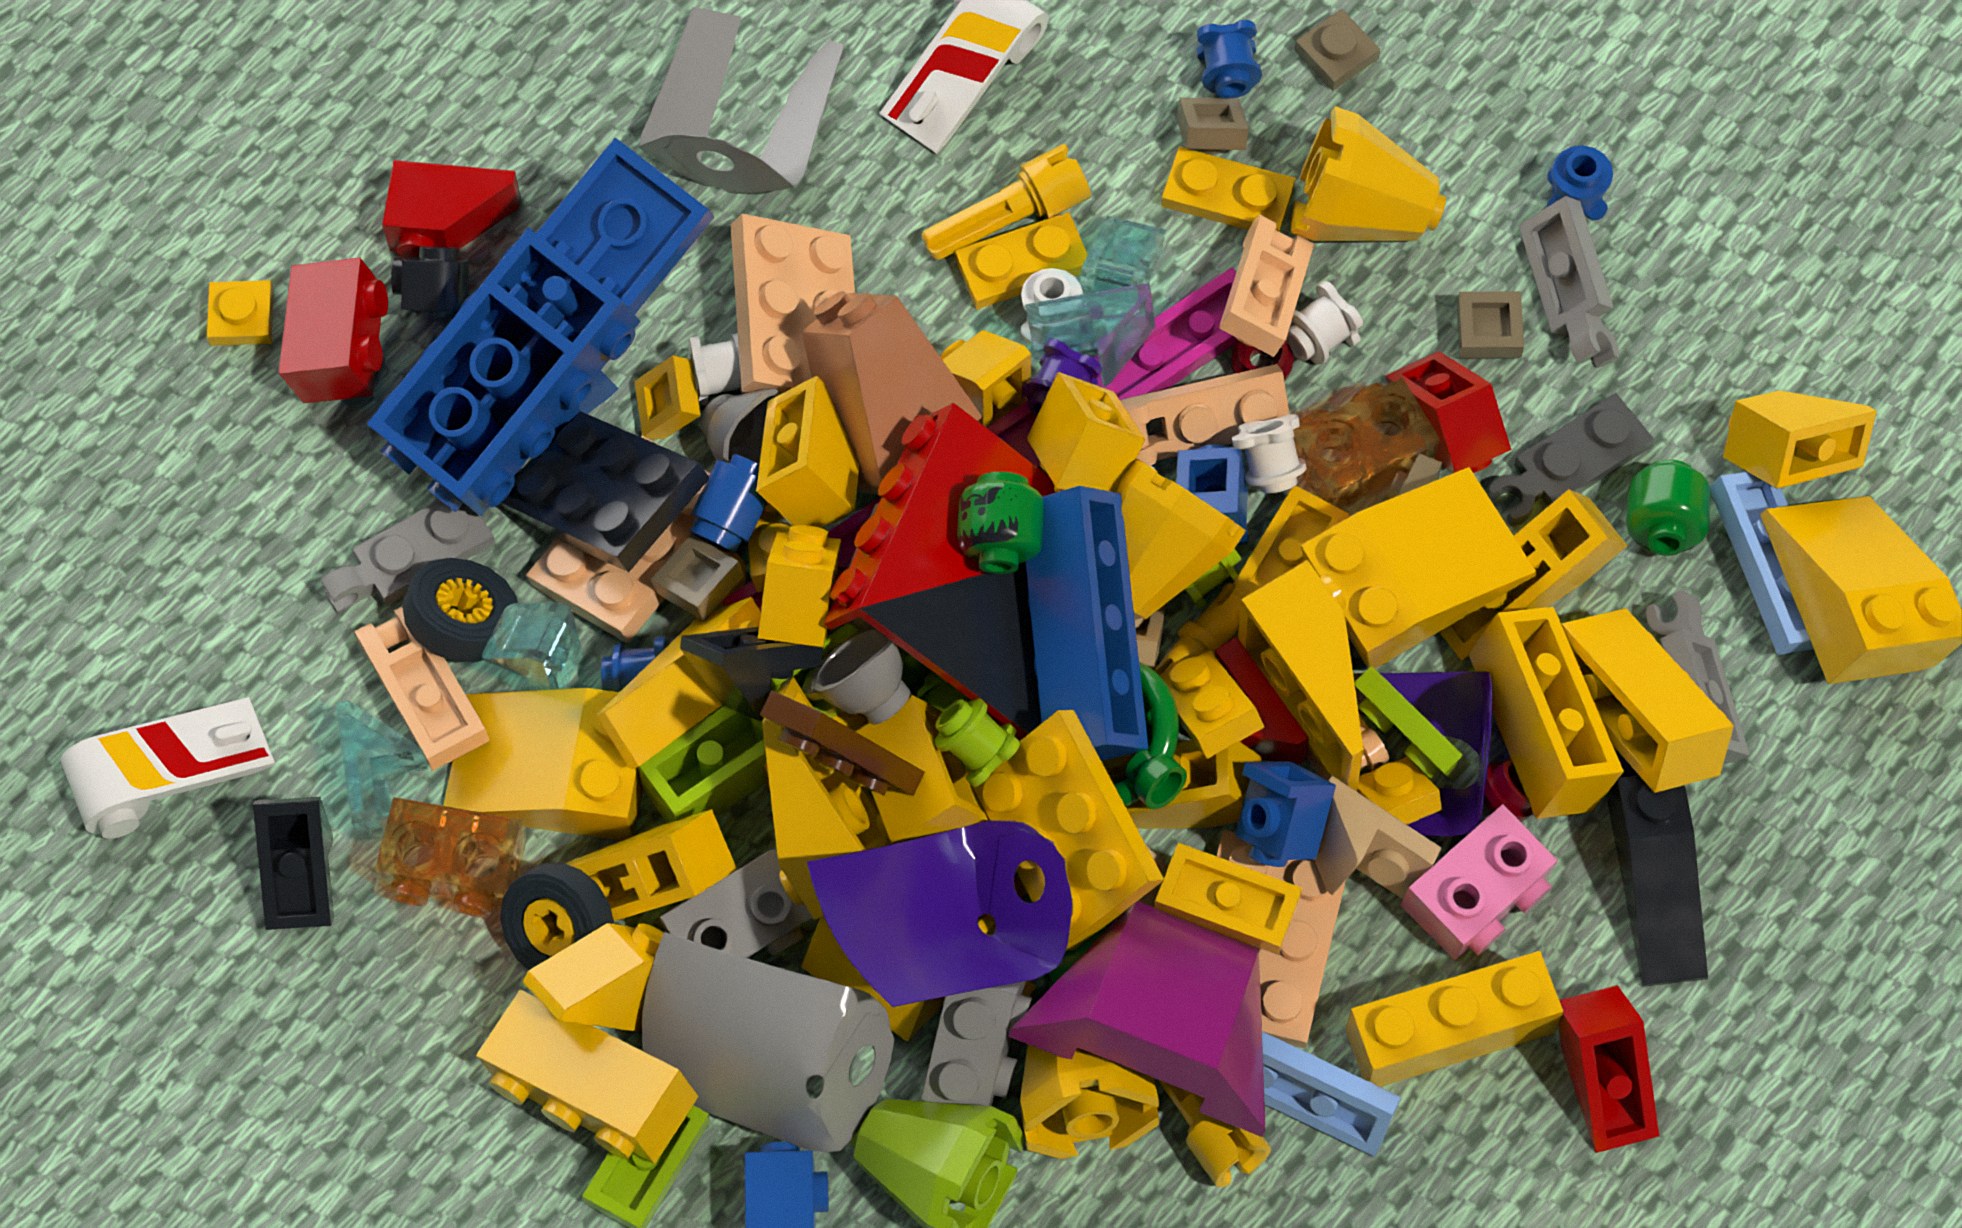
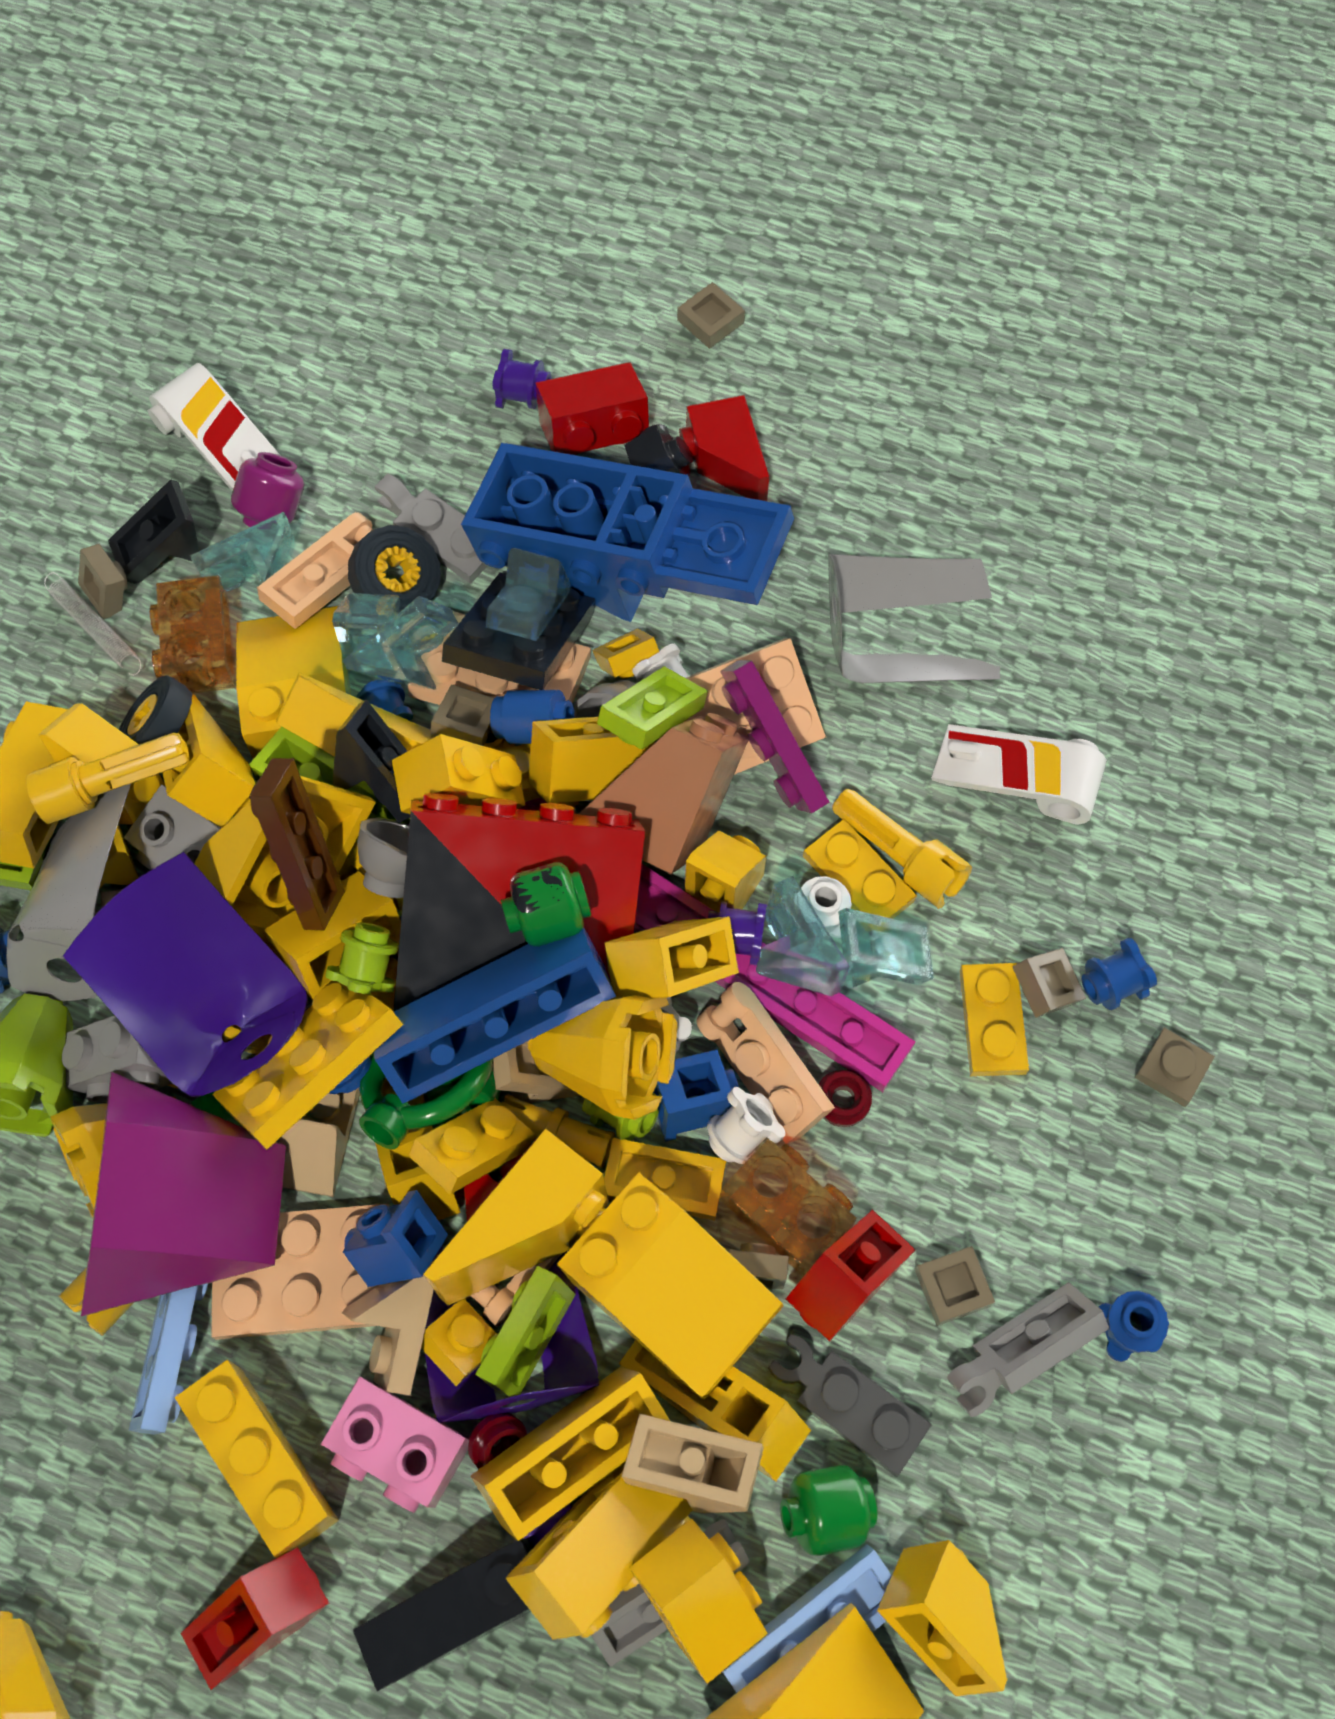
camera: 70 degrees right, 0 degrees up
(240, 312) = (592, 350): yellow plate -> none
(245, 166) = (710, 315): none -> dark tan plate
(249, 399) = (517, 380): none -> dark purple brick
(288, 720) = (267, 488): none -> magenta head
(328, 945) = (102, 580): none -> dark tan plate
(439, 939) = (90, 609): none -> white piece
(584, 459) = (531, 595): none -> clear light blue slope
(597, 624) = (398, 646): none -> clear light blue slope
(644, 997) = (73, 786): none -> yellow piece
(791, 363) = (652, 707): none -> lime plate
(824, 270) = (772, 737): none -> magenta plate
(1228, 898) = (307, 1223): yellow plate -> none
(1266, 286) = (899, 1072): light nougat plate -> none
(1323, 326) = (889, 1135): white brick -> none
(1364, 186) = (1037, 1129): yellow cone -> none
(1606, 584) = (693, 1464): none -> tan slope
(1723, 632) = (701, 1598): none -> yellow brick

